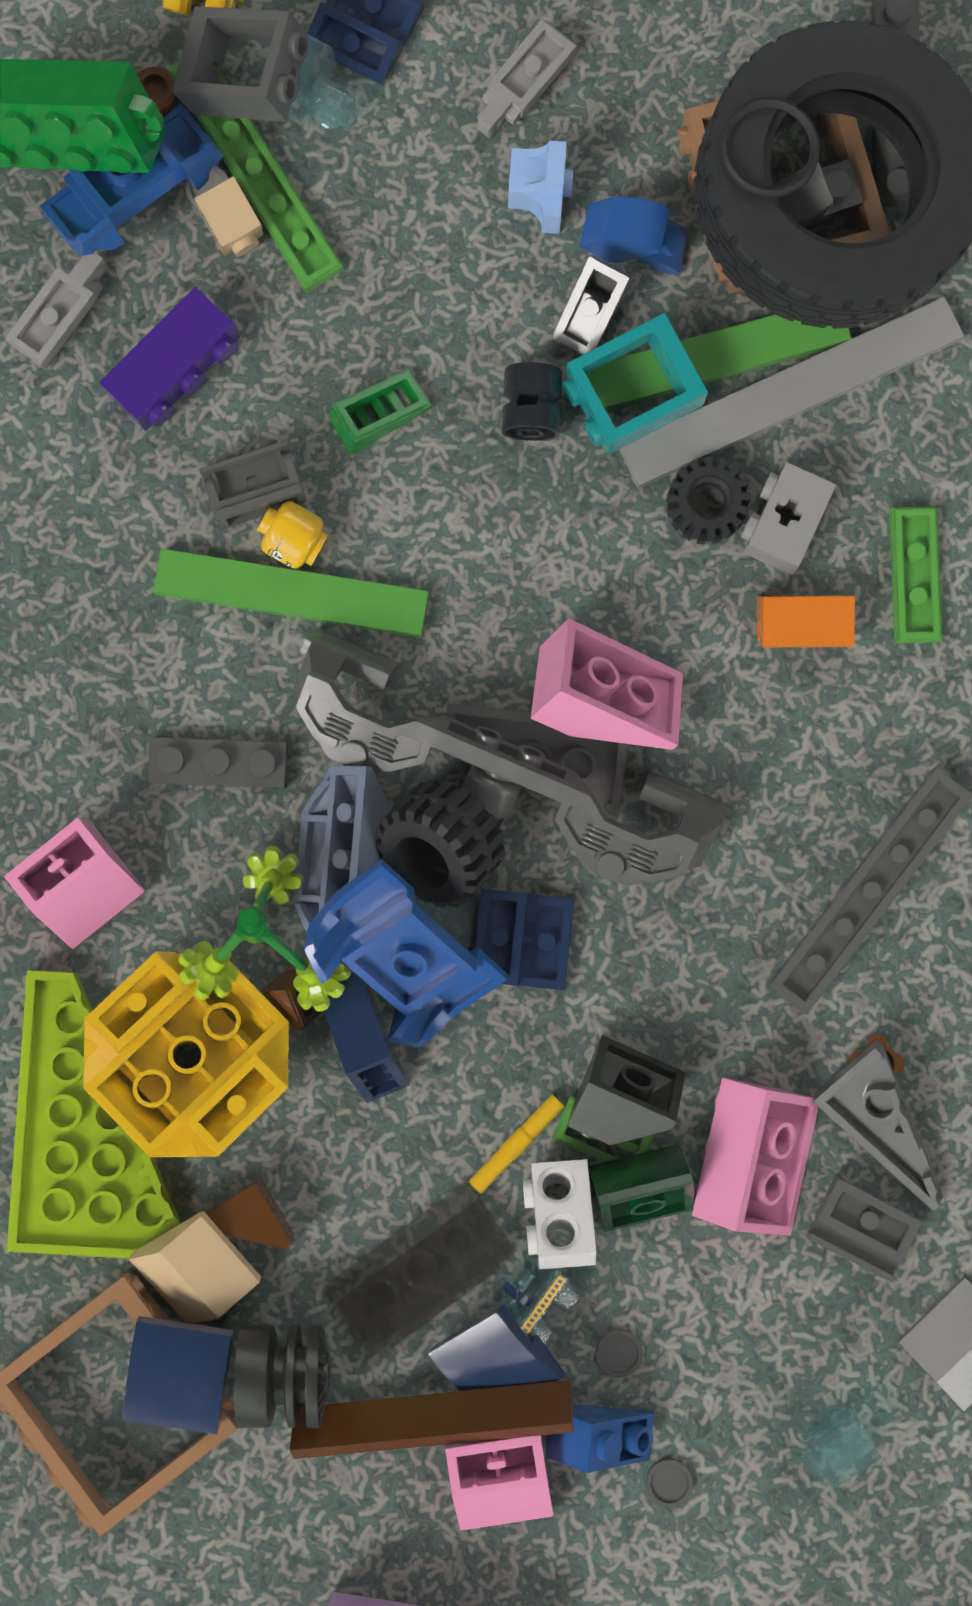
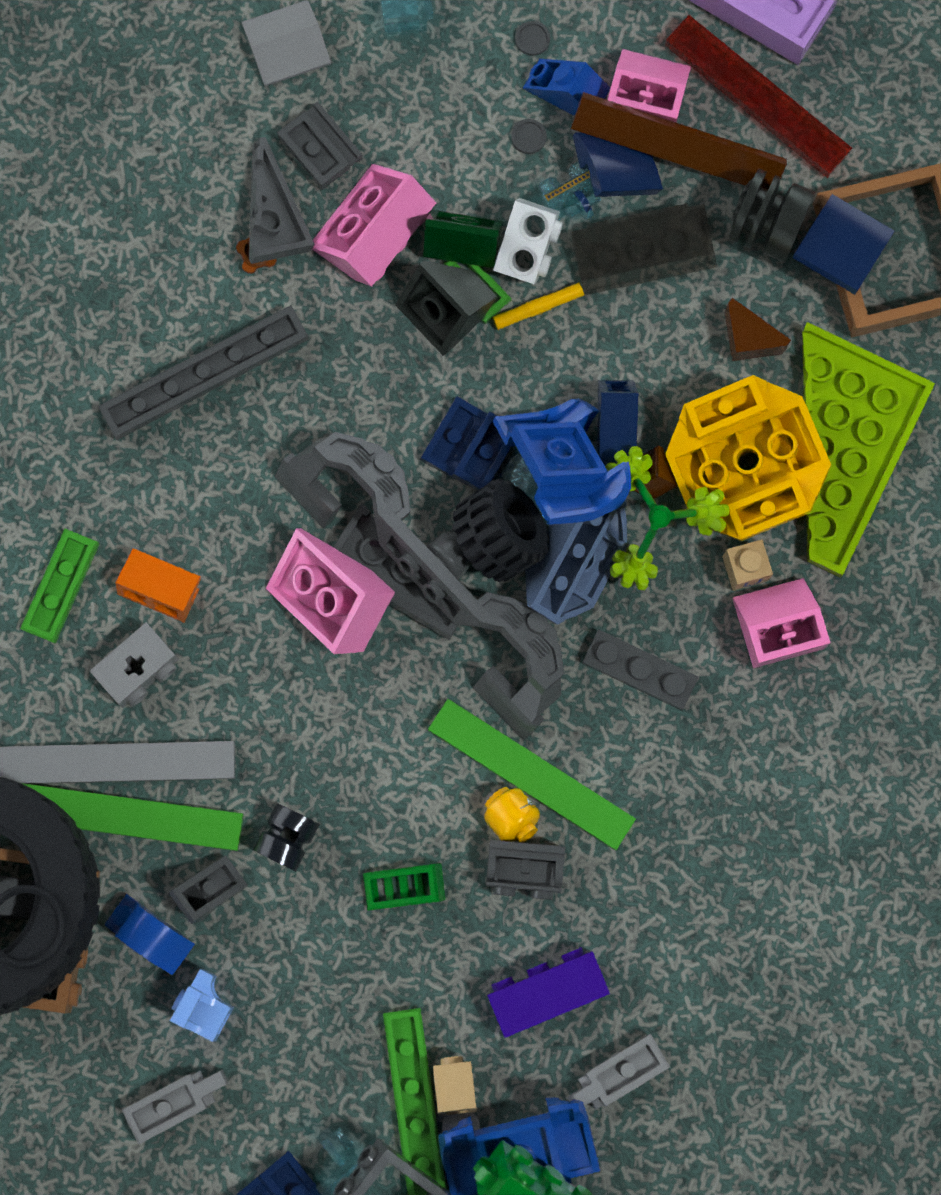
camera: 160 degrees left, 5 degrees down
(140, 933) = (747, 565): none -> tan brick
(196, 1269) = (803, 312): tan slope -> none
(363, 1527) = (758, 96): none -> clear red plate
(673, 361) = (165, 813): teal window -> none
(714, 475) = (172, 690): black tyre -> none

